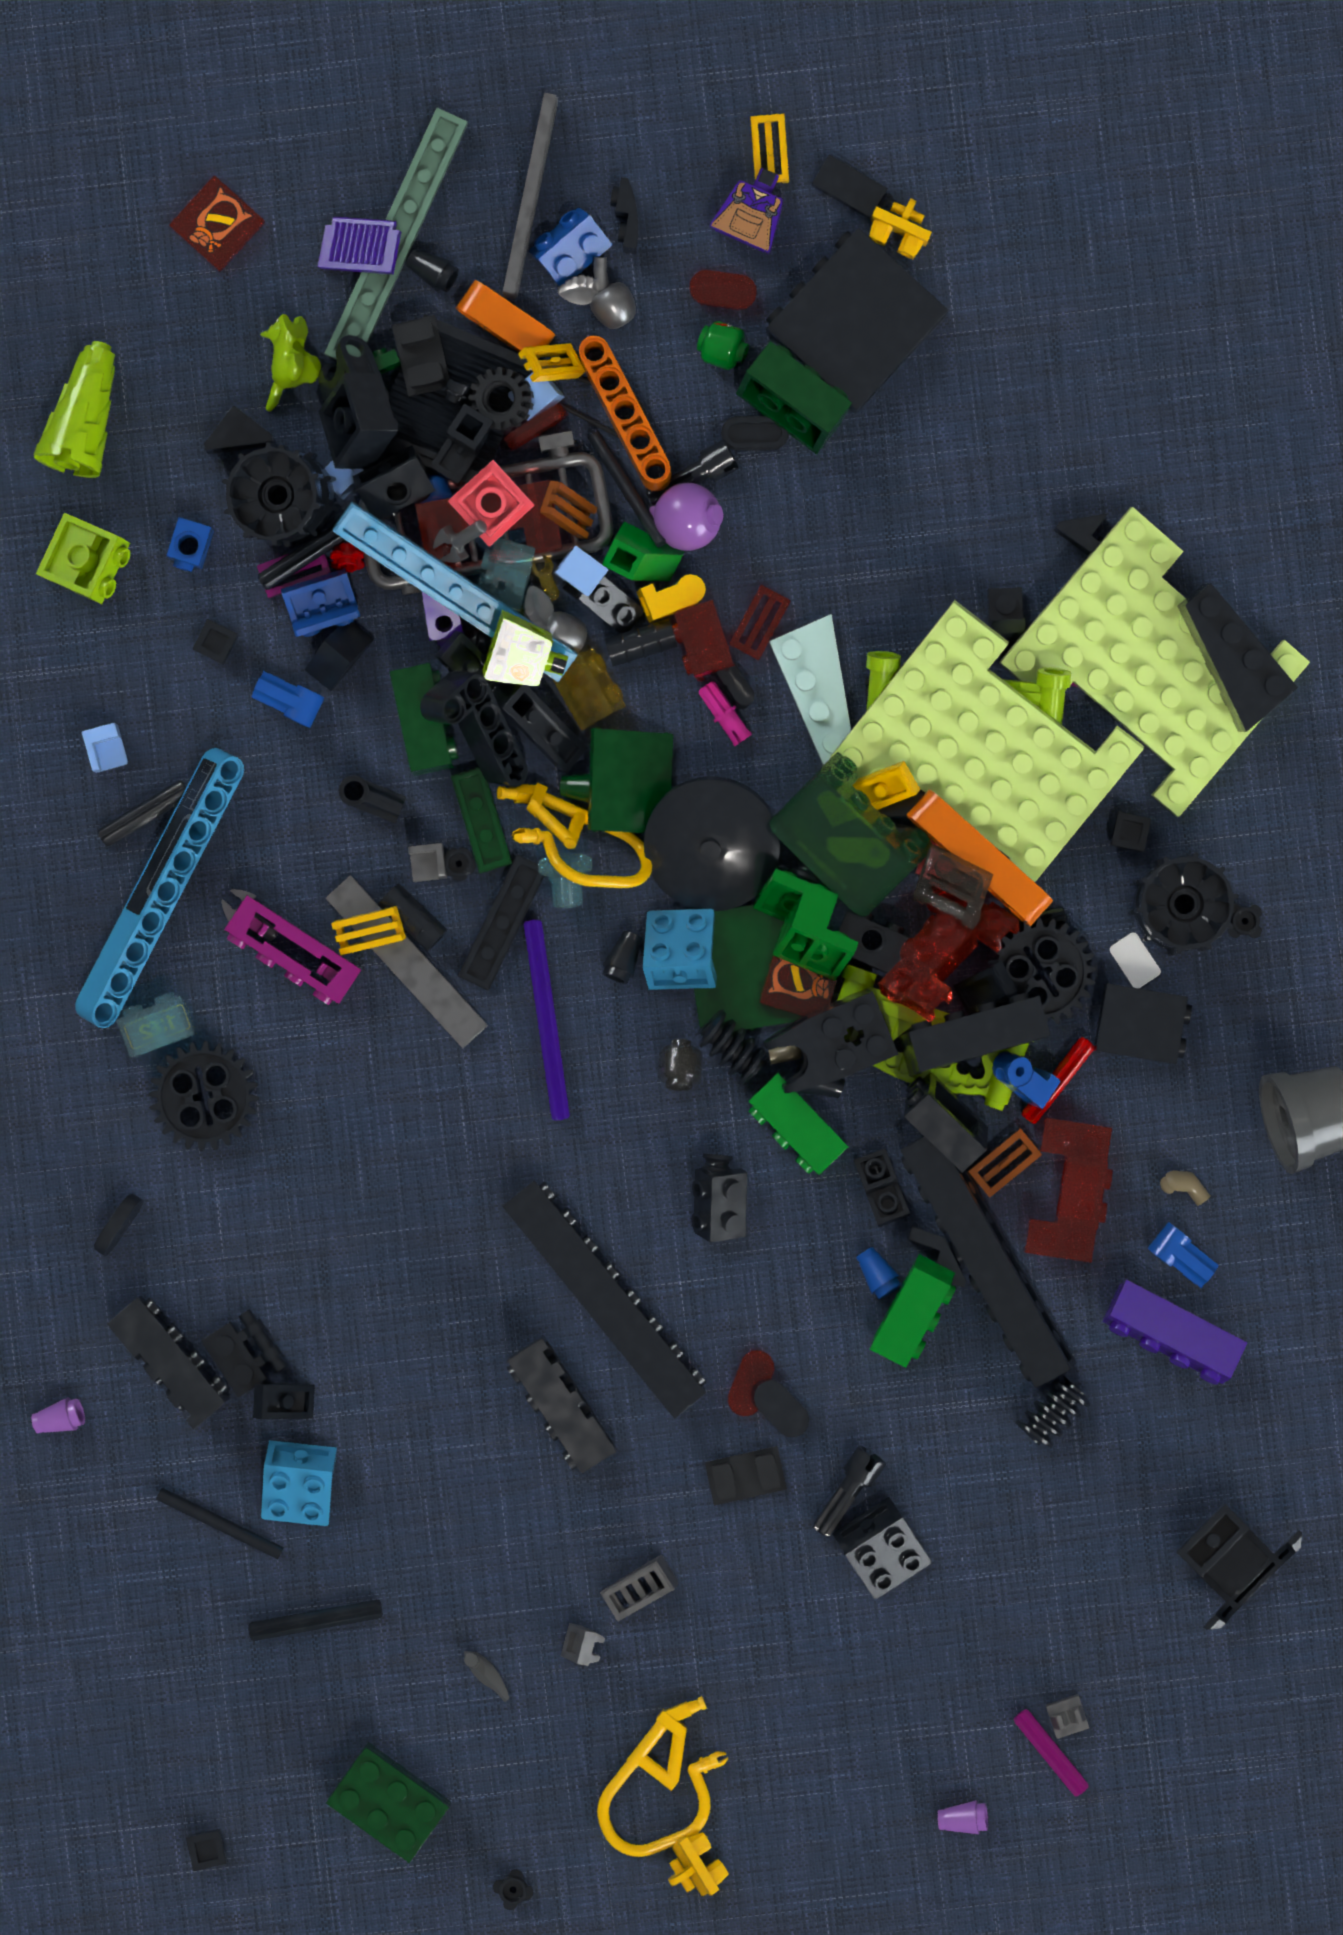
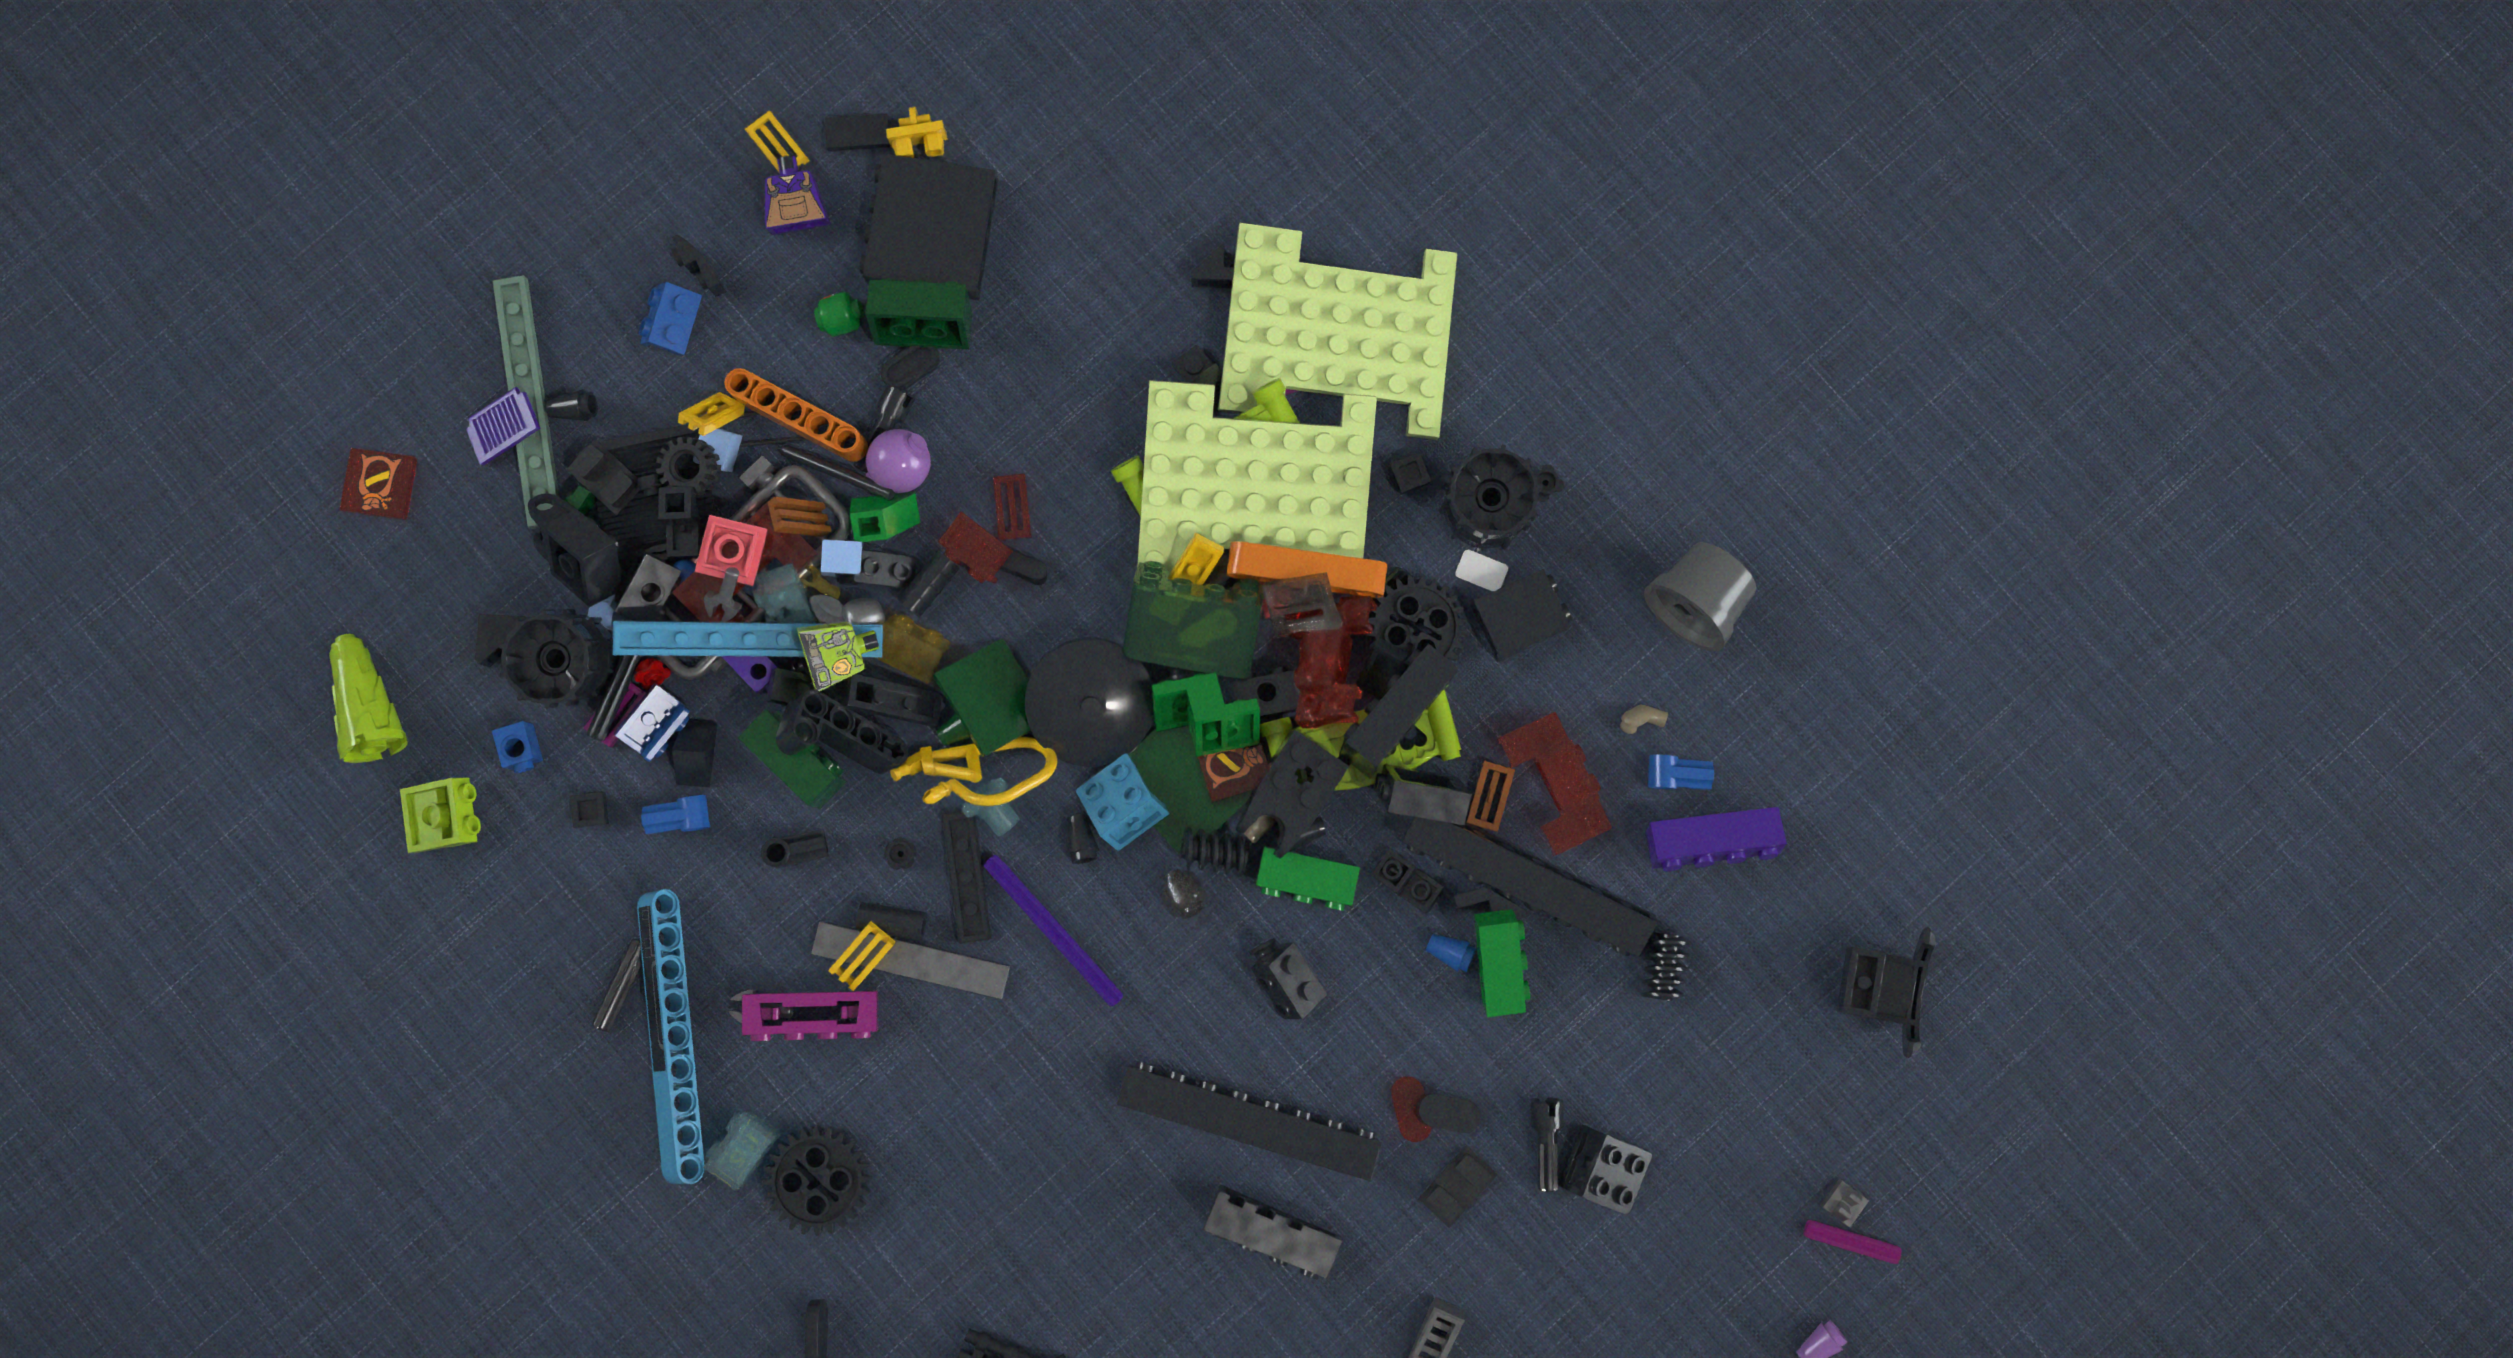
camera: 35 degrees left, 5 degrees down
(105, 747) = (554, 953): light blue panel -> none
(290, 361) = (505, 551): lime animal -> none
(427, 862) = (874, 869): flat silver panel -> none
(481, 820) = (896, 808): dark green tile -> none
(502, 318) = (650, 406): orange beam -> none
(530, 196) = (612, 300): flat silver tile -> none
(536, 426) = (734, 468): clear red tile -> none
(610, 303) = (729, 340): flat silver piece -> none
(682, 595) = (925, 540): yellow leg -> none
(722, 290) = (812, 273): clear red tile -> none
(724, 713) = (1031, 594): dark pink axle -> none
(816, 683) = (1086, 522): light aqua wing -> none
(1028, 1084) = (1466, 721): blue leg -> none
(1064, 1072) = (1487, 703): red axle -> none
(1241, 666) = (1398, 282): black wedge -> none

